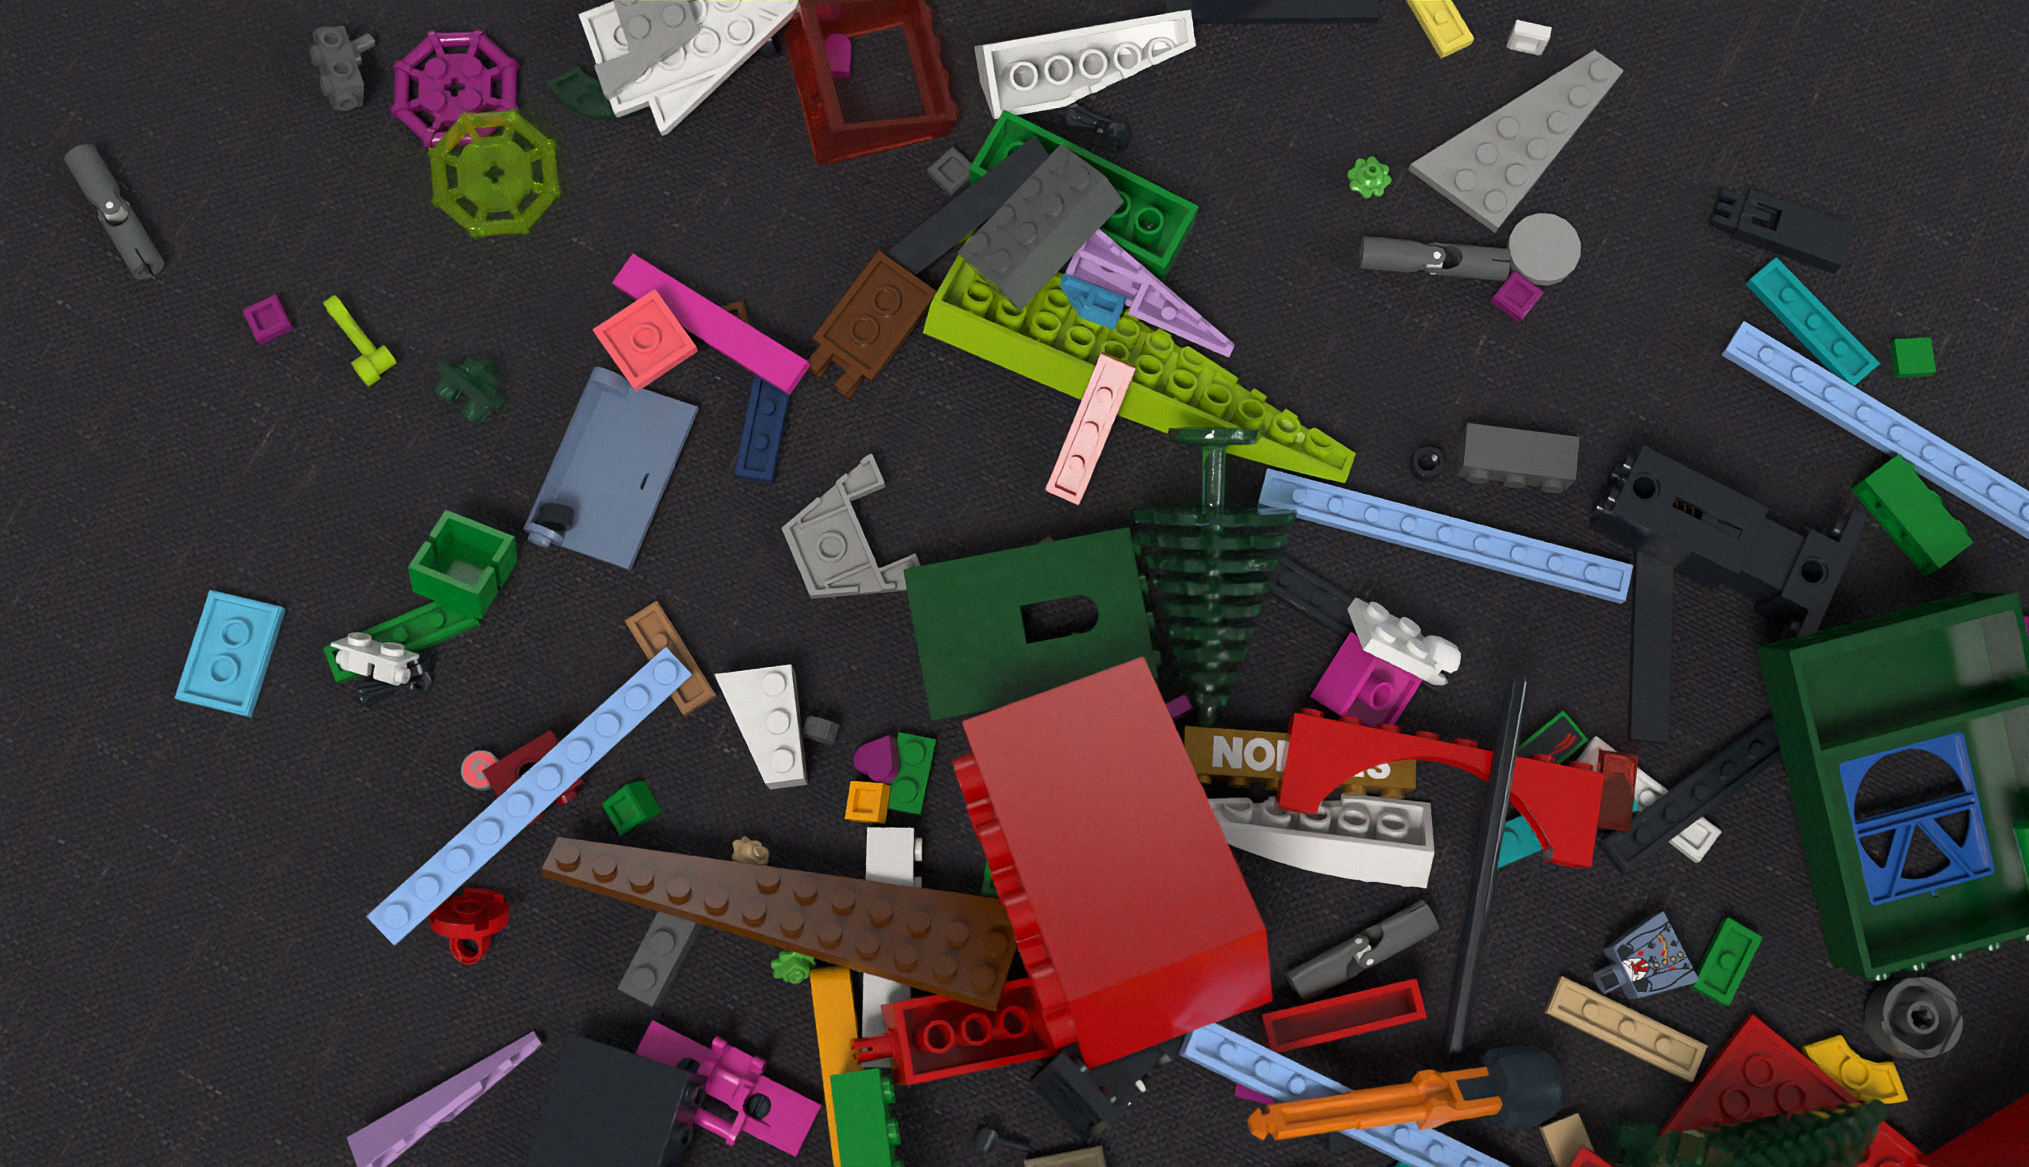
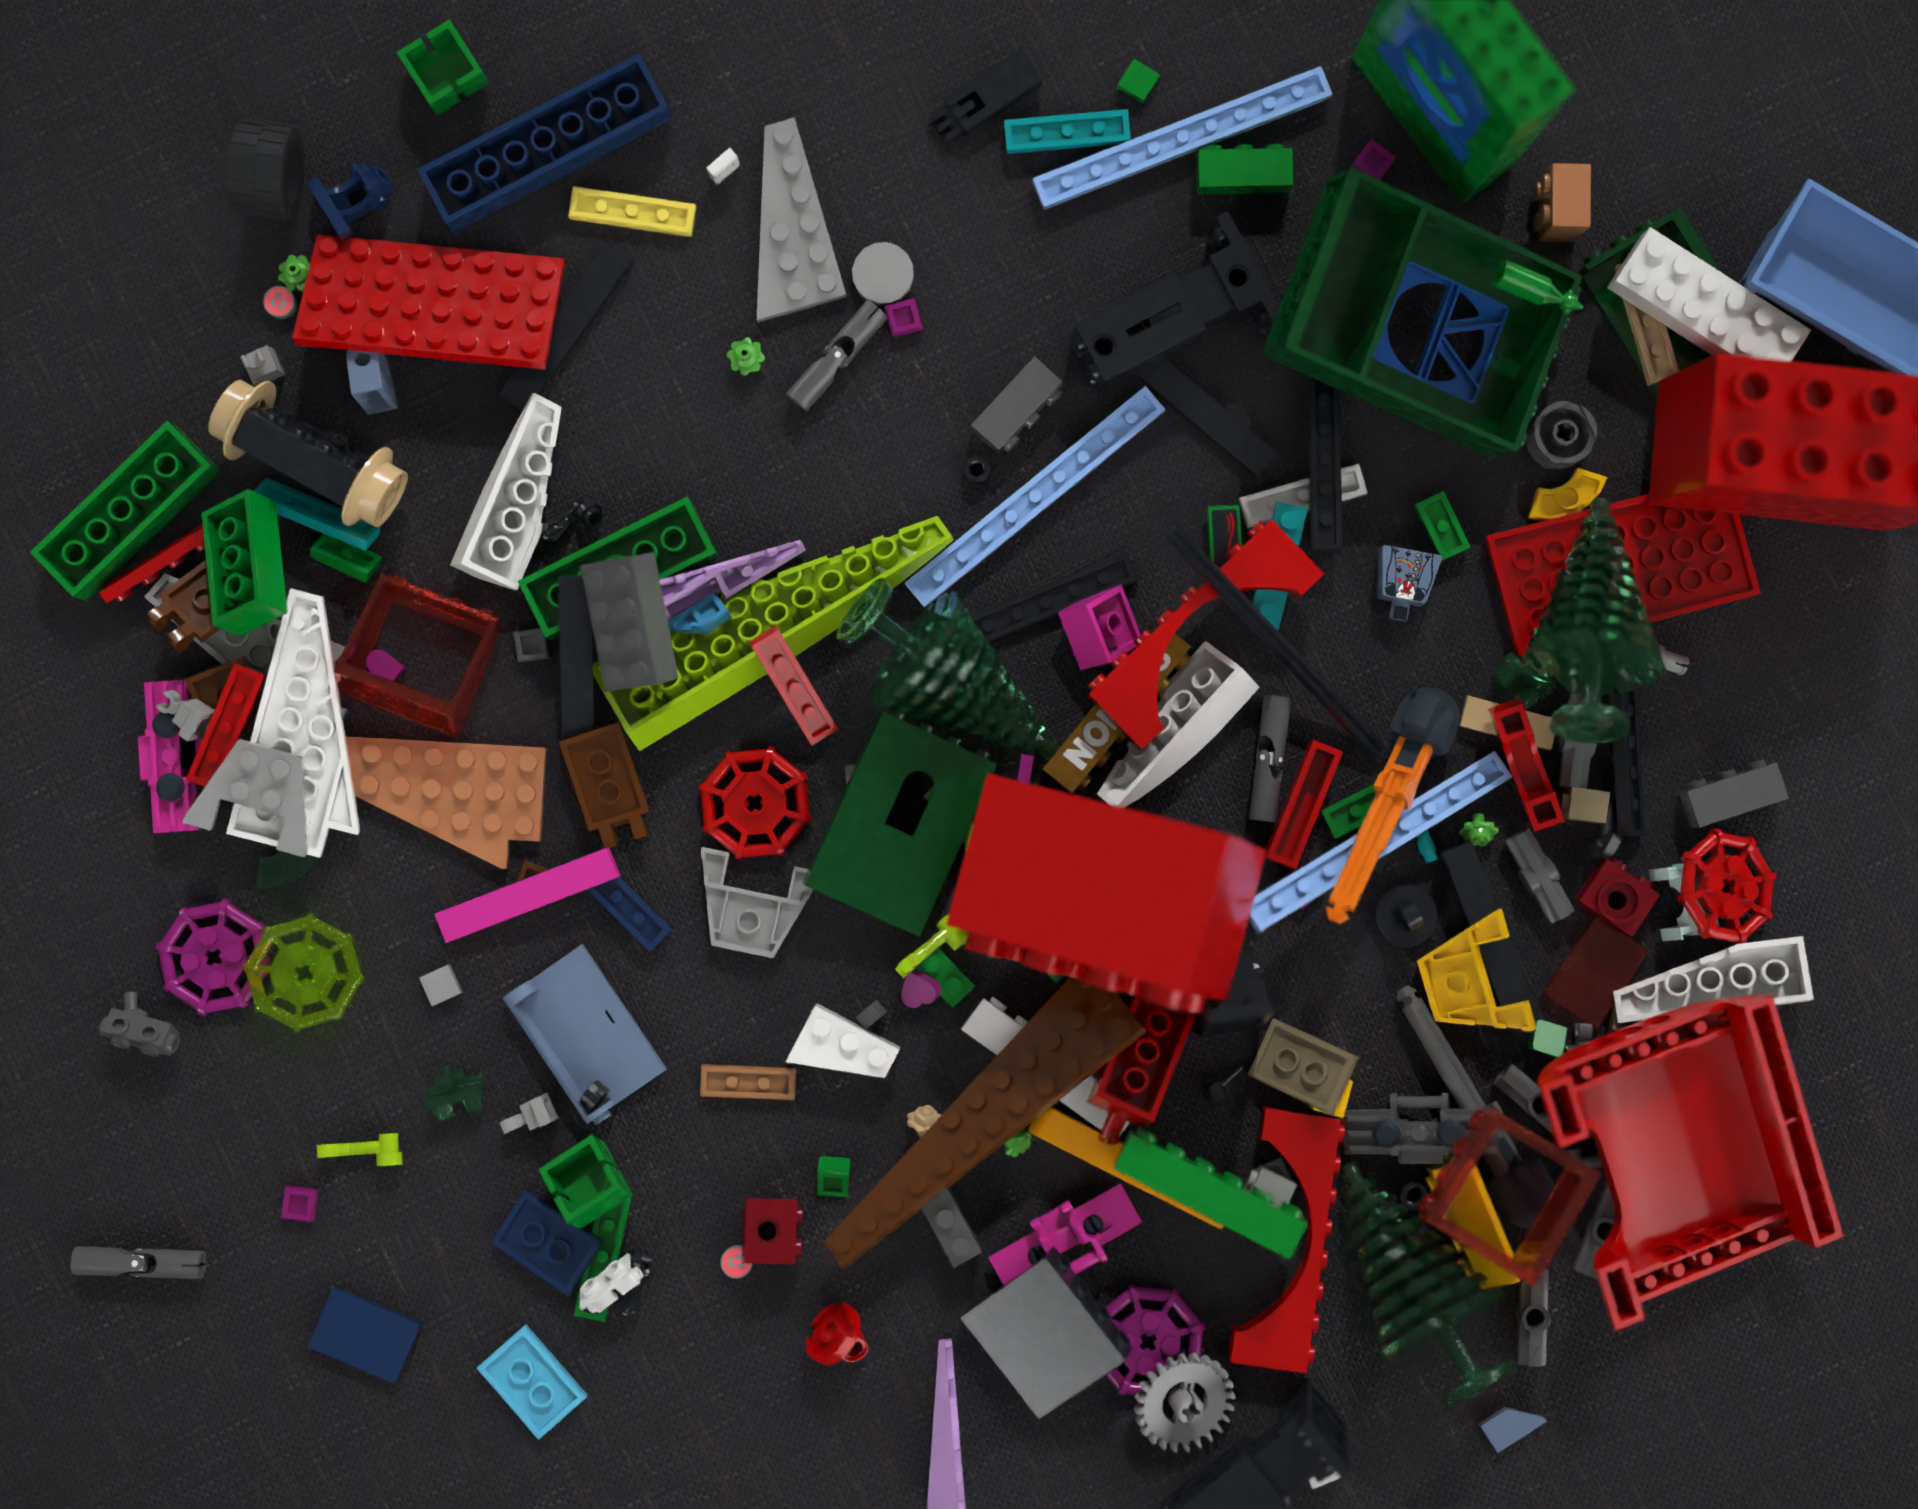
camera: 55 degrees left, 10 degrees up
(176, 464) = (364, 1334): none -> dark blue tile
(376, 573) = (545, 1243): none -> dark blue tile
(500, 475) = (534, 1114): none -> light grey piece
(528, 797) = (783, 1240): light blue plate -> none
(568, 306) = (440, 985): none -> light grey tile
(645, 340) = (510, 950): coral tile -> none
(764, 196) = (455, 790): none -> nougat wing
(867, 802) = (942, 1016): light orange tile -> none
(951, 748) = (953, 936): none -> lime brick
(954, 497) = (736, 803): none -> red plate
(1362, 1070) = (1348, 812): none -> green plate
(1402, 643) = (1090, 585): white plate -> none
(1618, 789) = (1285, 514): clear red tile -> none
(1625, 1029) = (1437, 623): tan tile -> none

